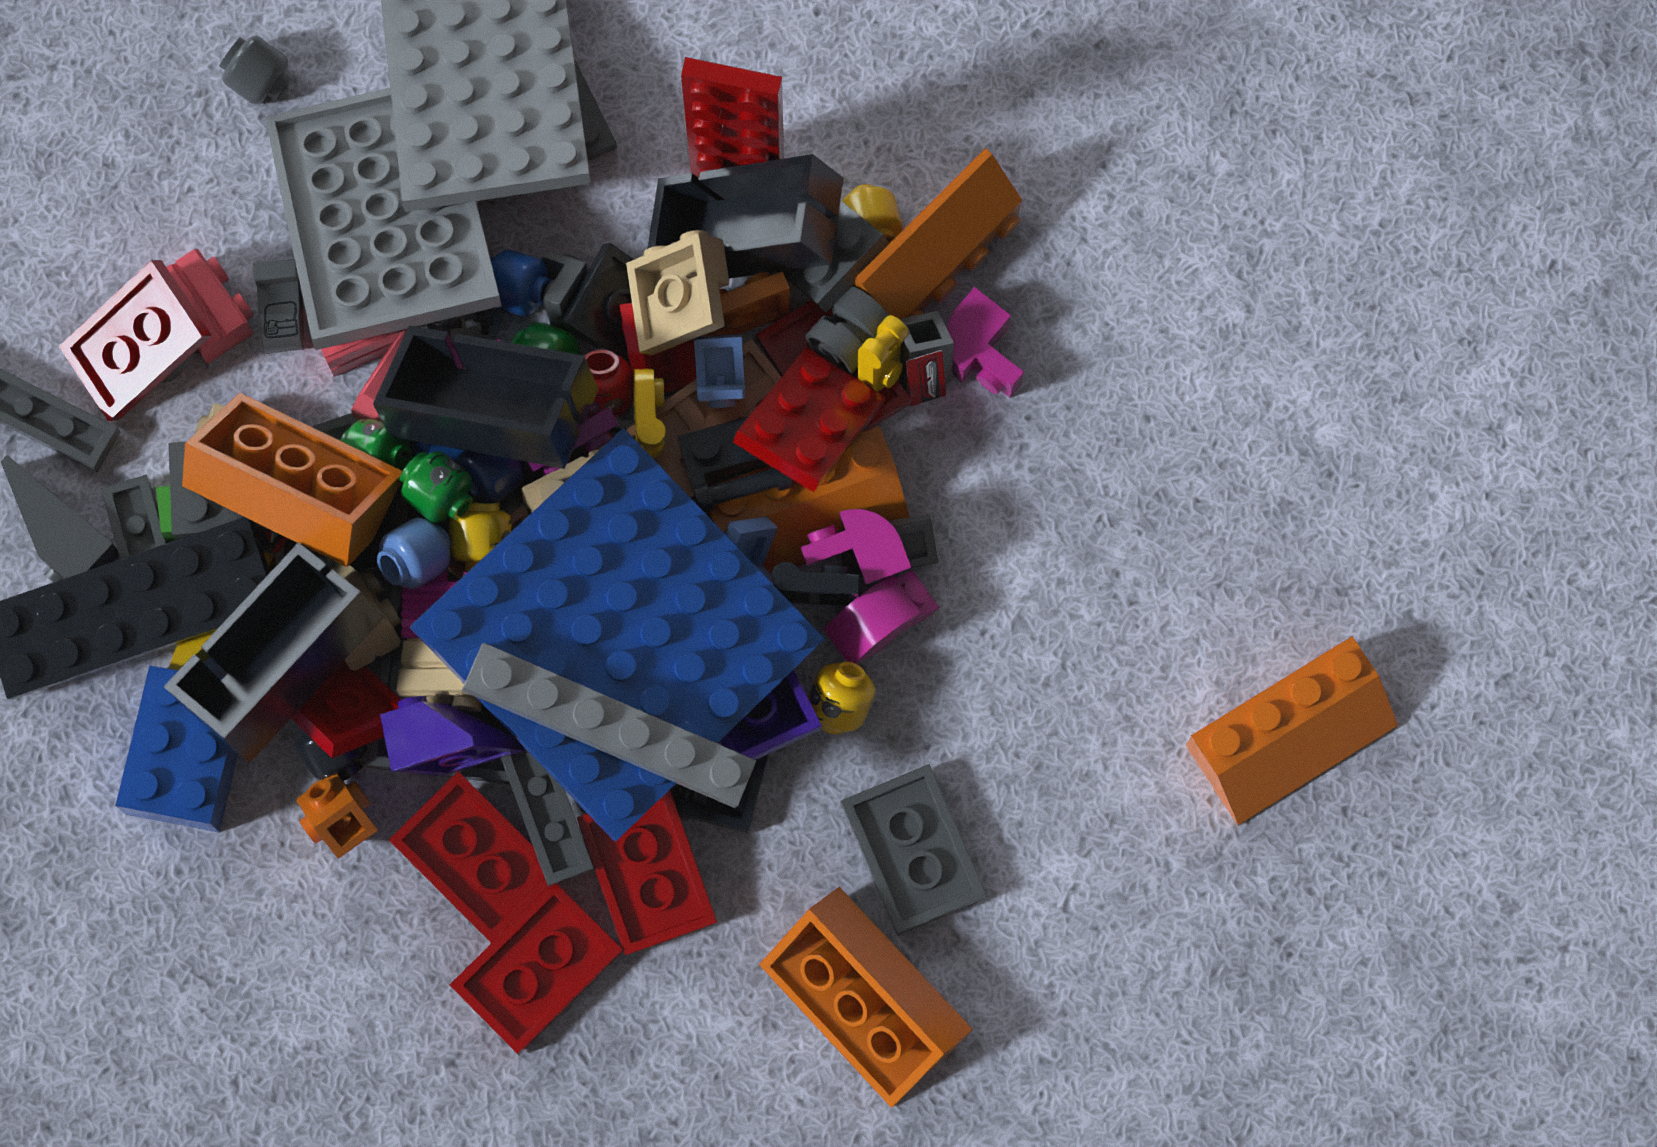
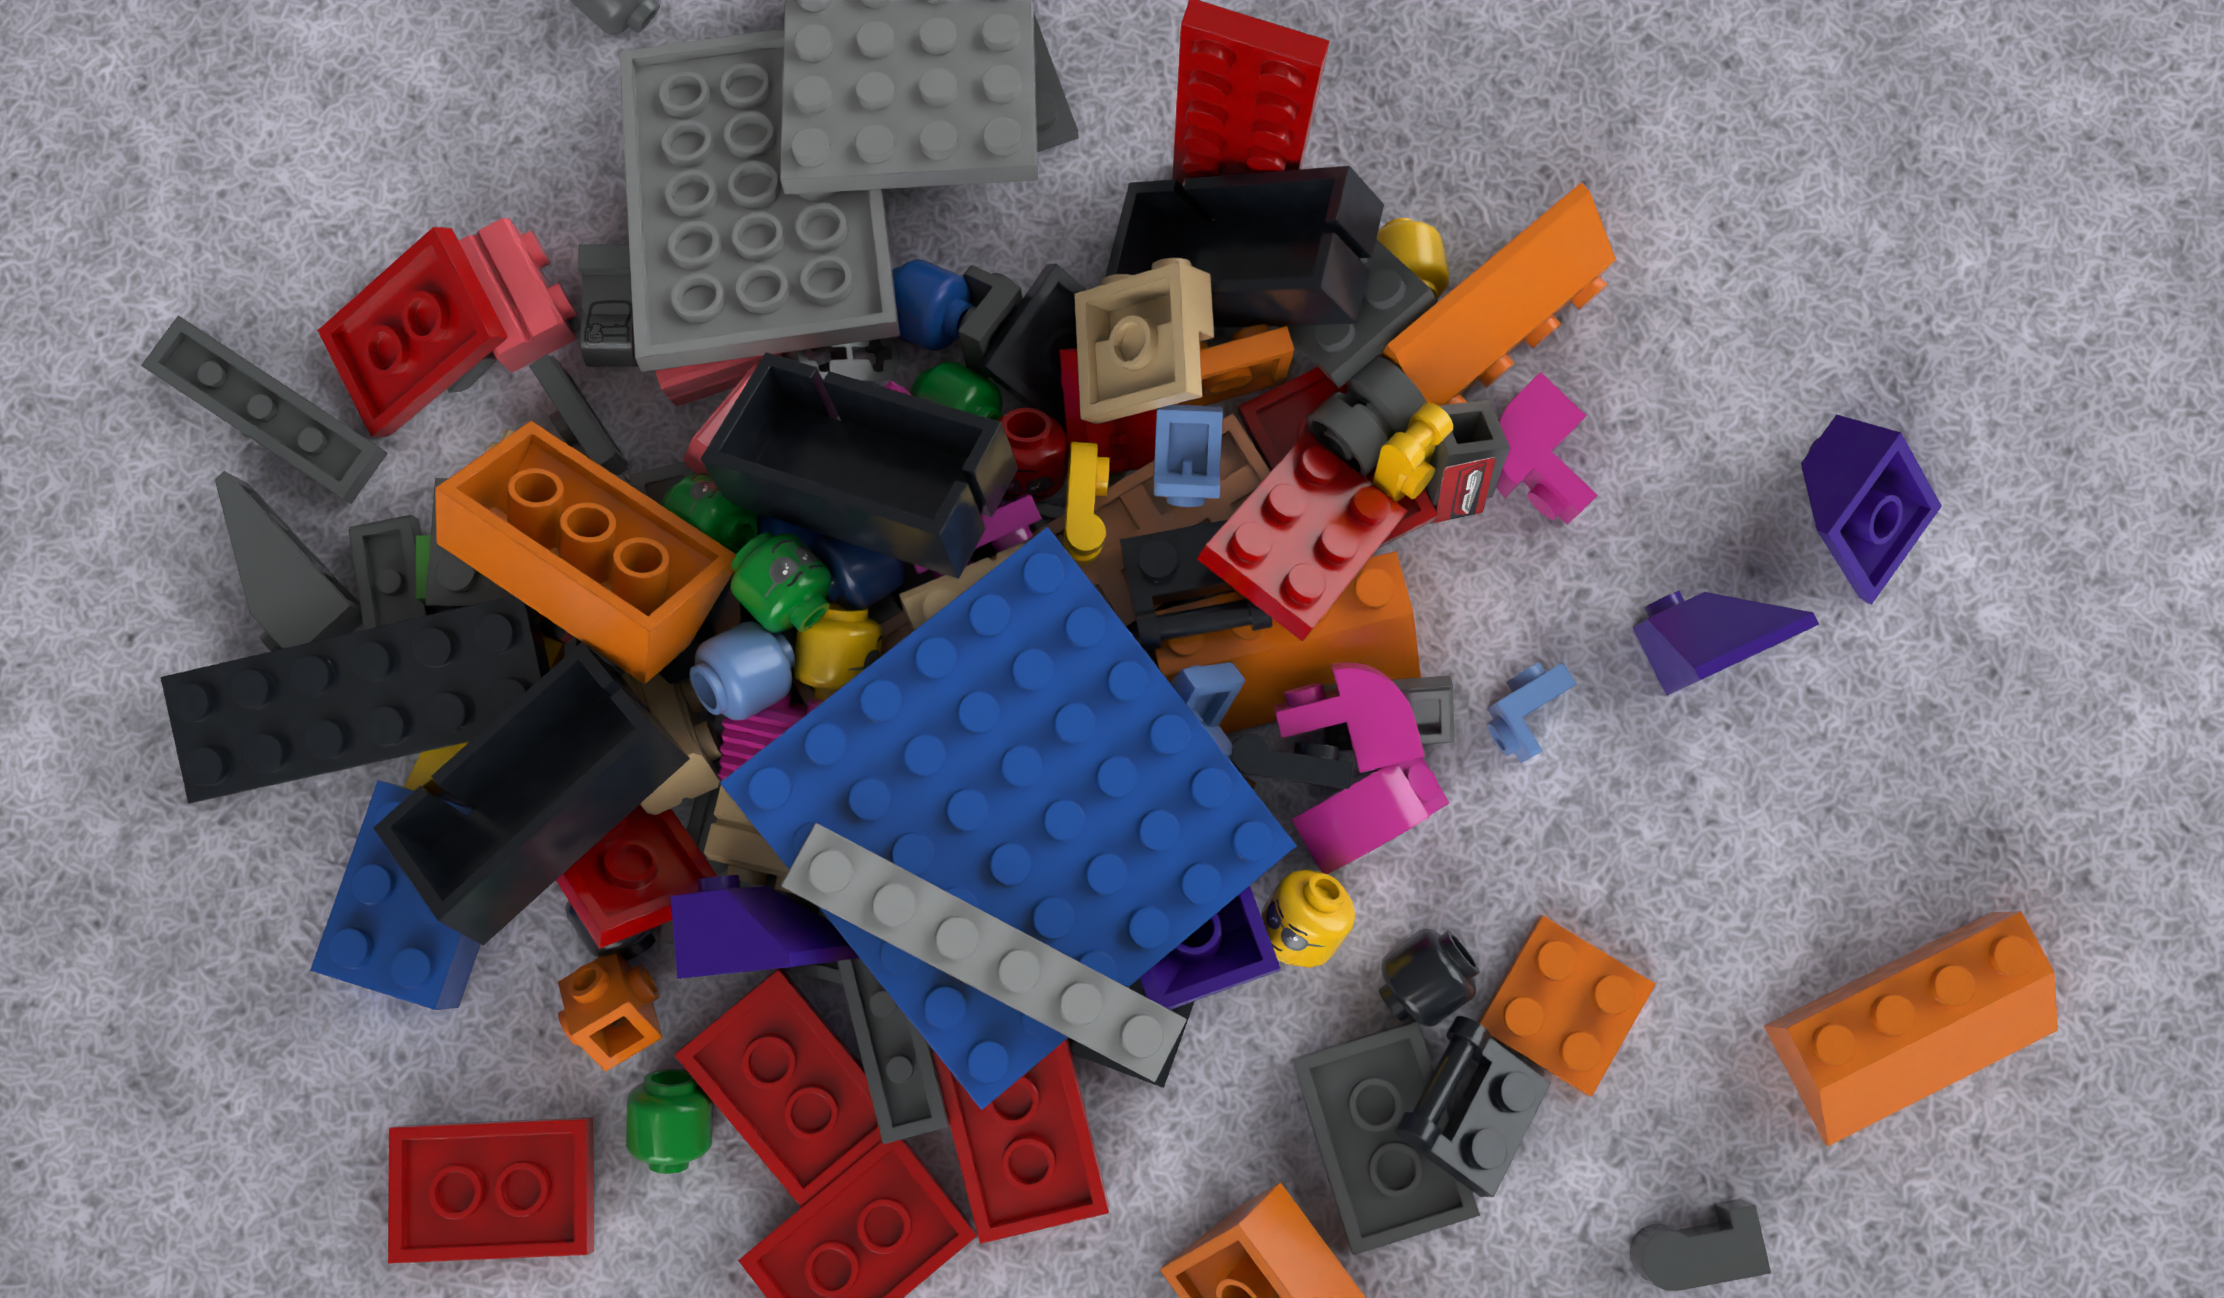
camera: 10 degrees right, 5 degrees up
(258, 383) = (575, 417): none -> dark grey plate
(260, 956) = (491, 1190): none -> red plate
(388, 892) = (668, 1121): none -> green head
(934, 732) = (1428, 977): none -> black head
(987, 825) = (1489, 1115): none -> plate
(989, 521) = (1530, 691): none -> medium blue bracket
(1037, 744) = (1565, 1005): none -> orange plate
(1119, 465) = (1711, 633): none -> dark purple slope
(1133, 912) = (1703, 1253): none -> dark grey leg
(1224, 359) = (1867, 500): none -> dark purple slope

